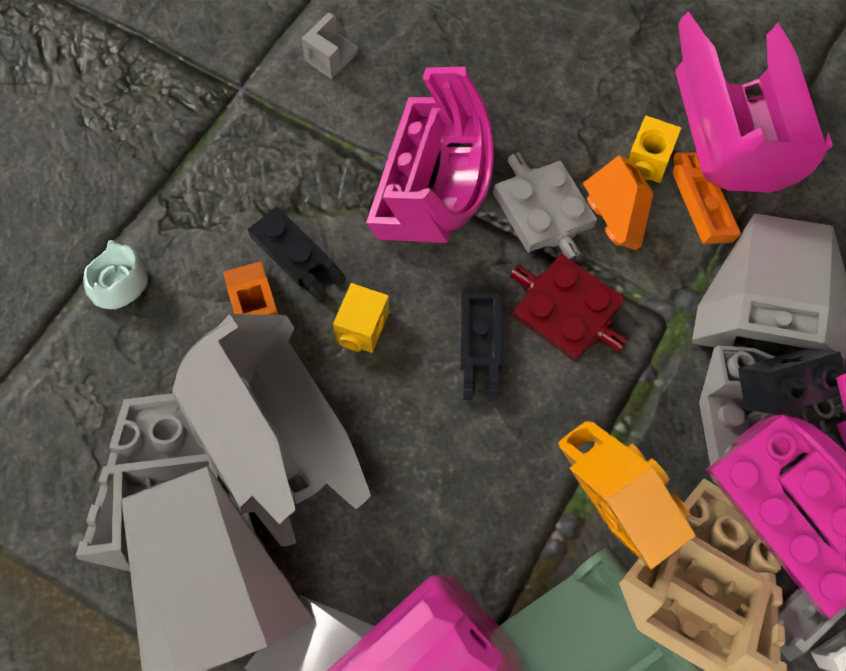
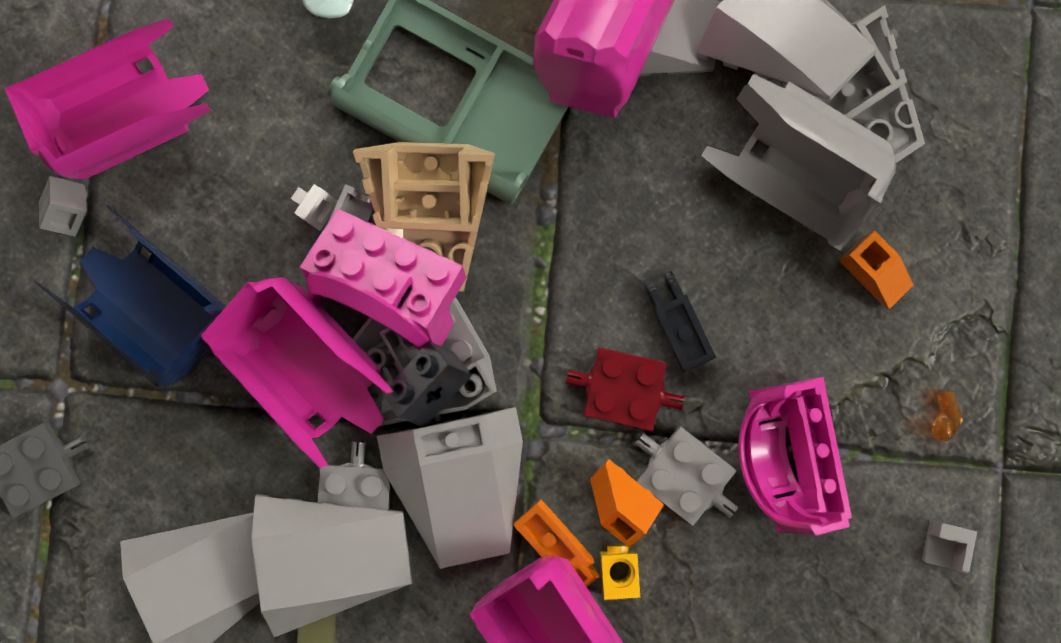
camera: 150 degrees right, 20 degrees up
(115, 277) = (994, 238): light aqua hair -> none
(263, 145) = (949, 418): none -> clear orange arm
(294, 252) = (868, 333): black hinge -> none
(361, 318) = (782, 295): yellow brick -> none
(628, 493) = (519, 222): light orange brick -> none

